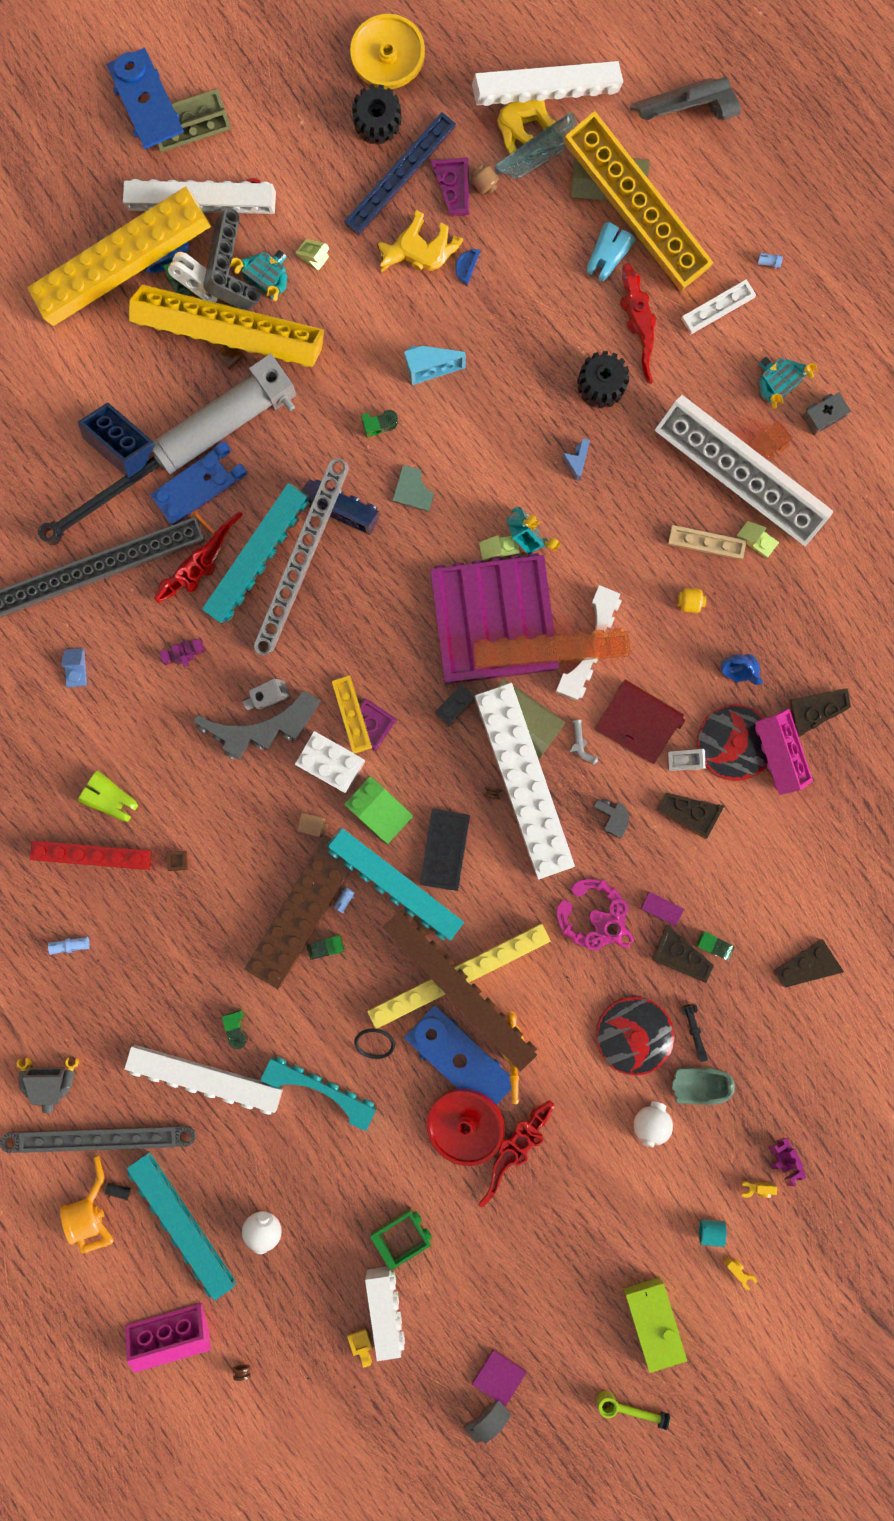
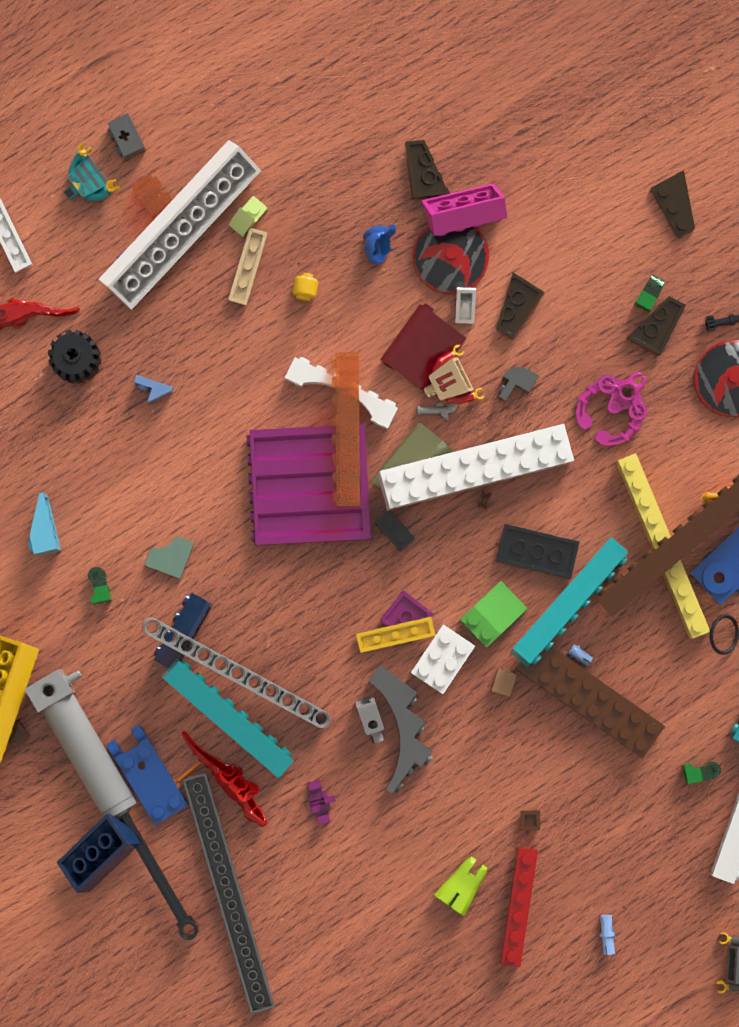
camera: 85 degrees left, 0 degrees up
(75, 667) = (326, 913): medium blue slope -> none
(325, 947) = (626, 677): leg -> none
(498, 548) = (236, 474): yellowish green slope -> none
(525, 532) = (224, 446): teal torso -> none
(609, 750) = (450, 380): none -> torso
(662, 909) = (610, 341): magenta tile -> none

